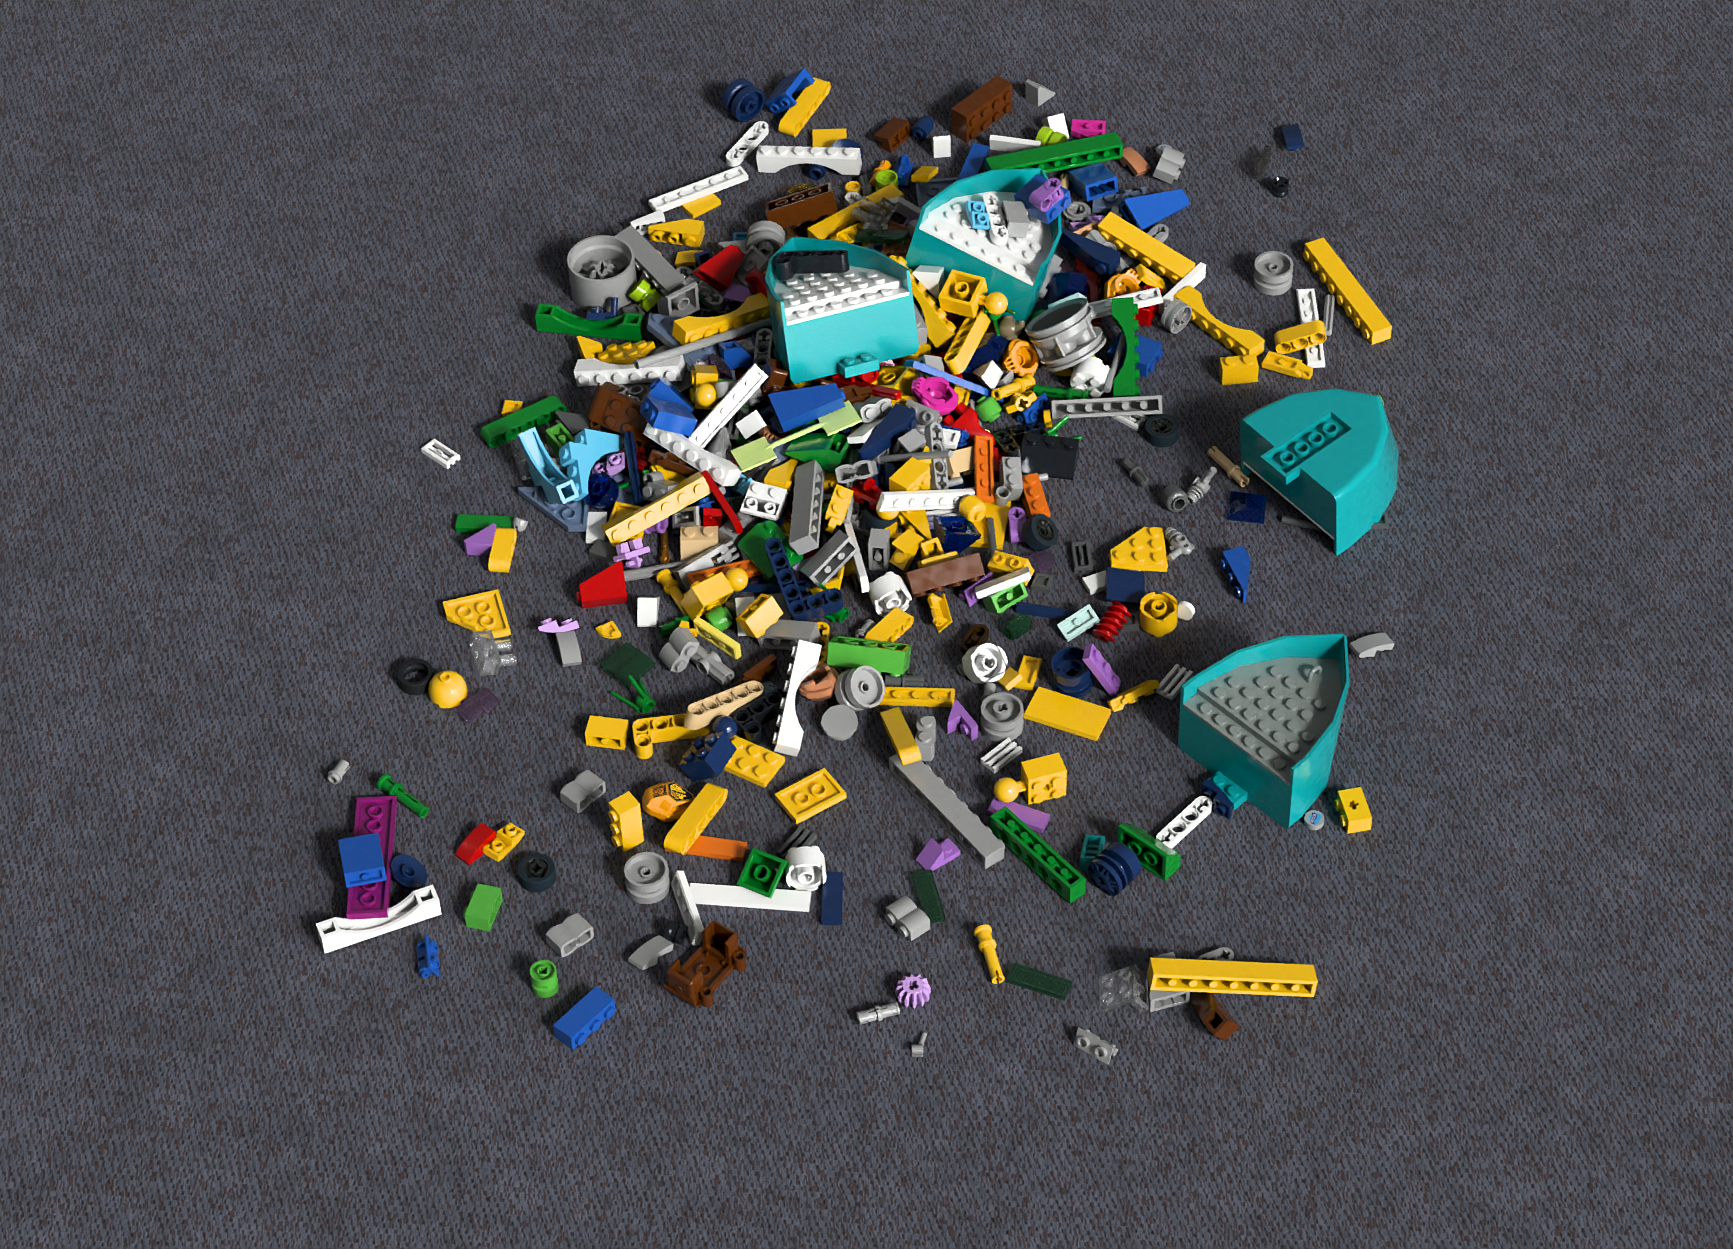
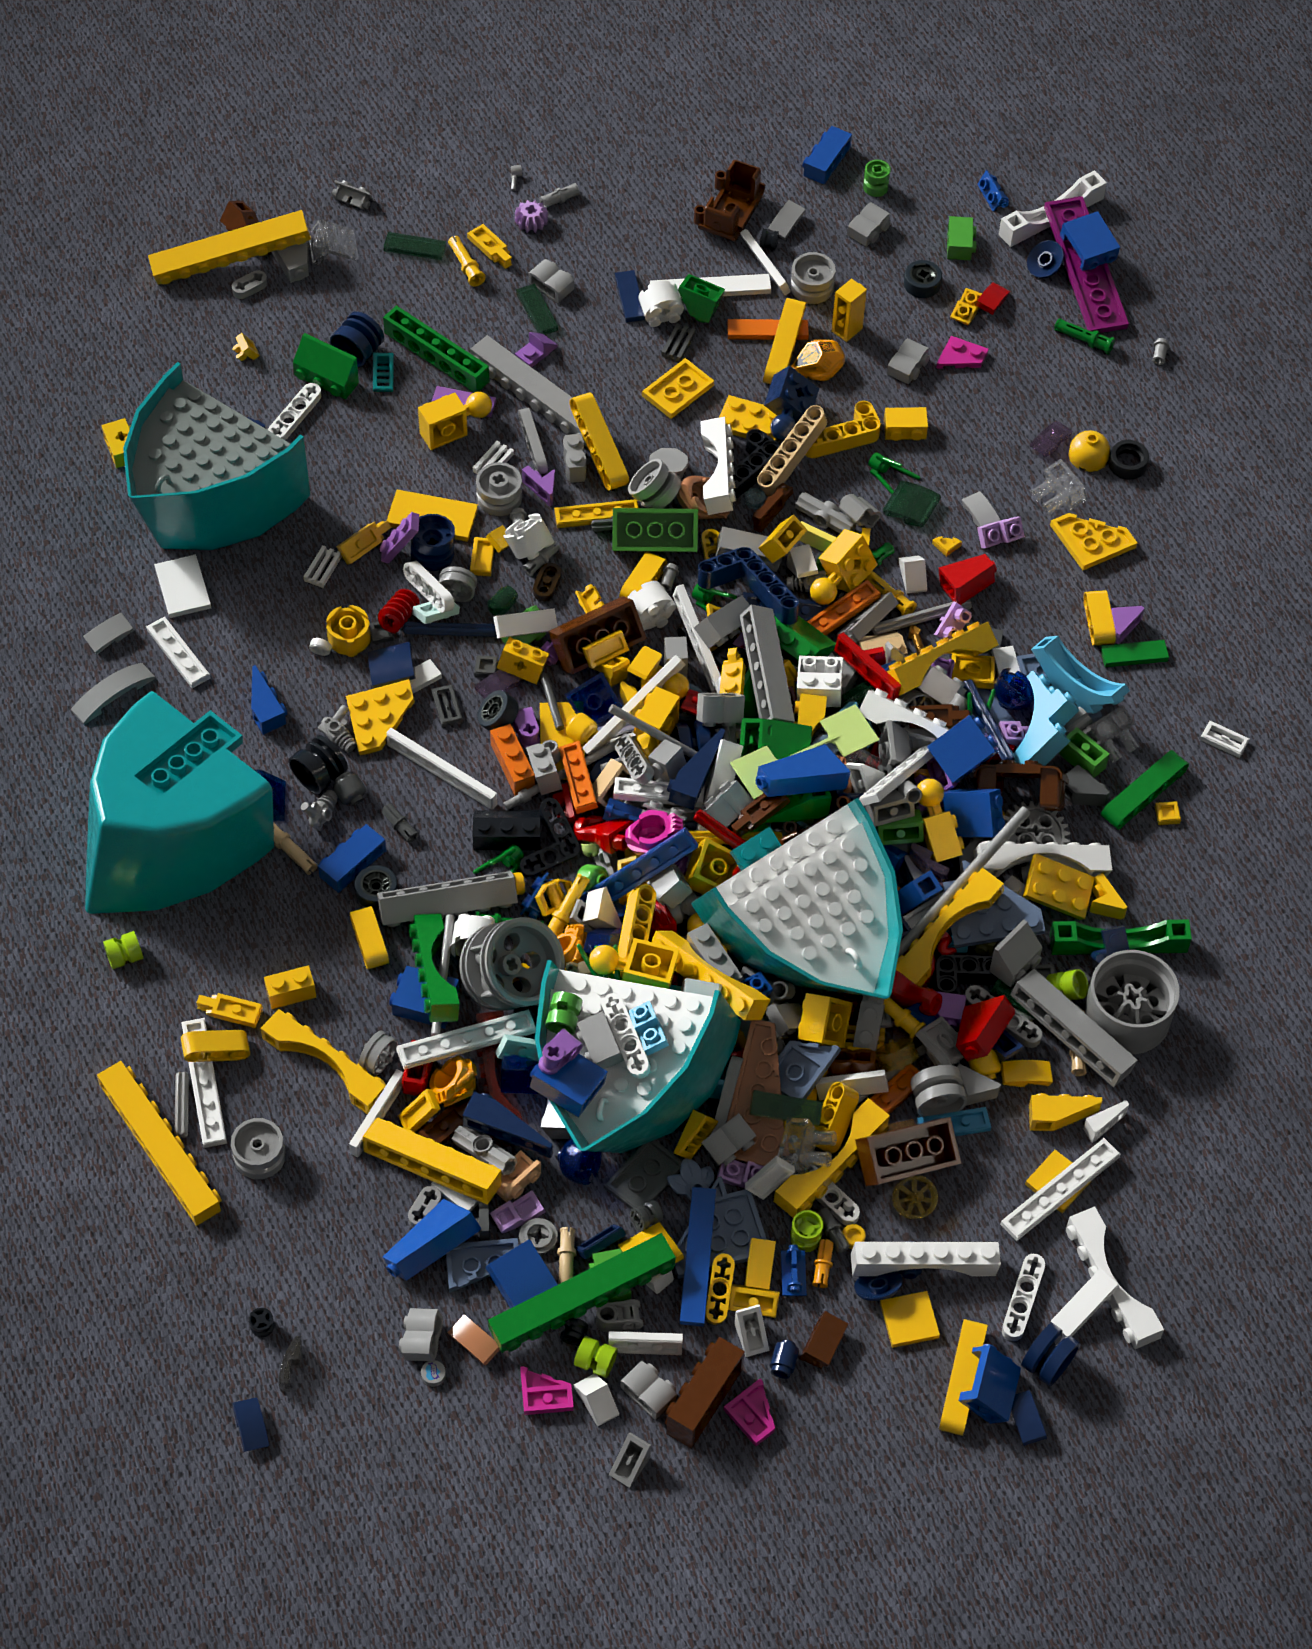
camera: 165 degrees right, 10 degrees up
(519, 524) = (1099, 655): light grey hinge -> none
(528, 797) = (962, 354): none -> dark pink wing
(688, 162) = (1137, 1319): none -> white arch
(708, 127) = (1085, 1303): none -> white tile
(769, 81) = (1027, 1418): none -> dark blue slope
(806, 262) = (844, 931): black beam -> none
(943, 165) = (745, 1297): none -> yellow slope
(948, 101) = (752, 1413): none -> dark pink wing
(955, 165) = (723, 1308): none -> yellow beam
(960, 761) = (532, 440): none -> light grey beam
(962, 967) = (490, 245): none -> yellow hinge
(1019, 123) = (649, 1389): none -> light grey brick
(1037, 239) = (564, 1012): none -> bright green wheel
(1055, 637) = (458, 582): none -> light grey wheel
(1076, 625) = (428, 586): none -> white beam
(1094, 503) = (441, 768): none -> white tile
(1172, 396) = (369, 937): none -> yellow beam
(1178, 450) = (351, 857): none -> blue brick
(1198, 508) = (318, 764): none -> black wheel
(1224, 889) = (245, 348): none -> yellow tile
(1304, 617) = (178, 652): none -> white tile
(1367, 599) = (109, 689): none -> light grey slope

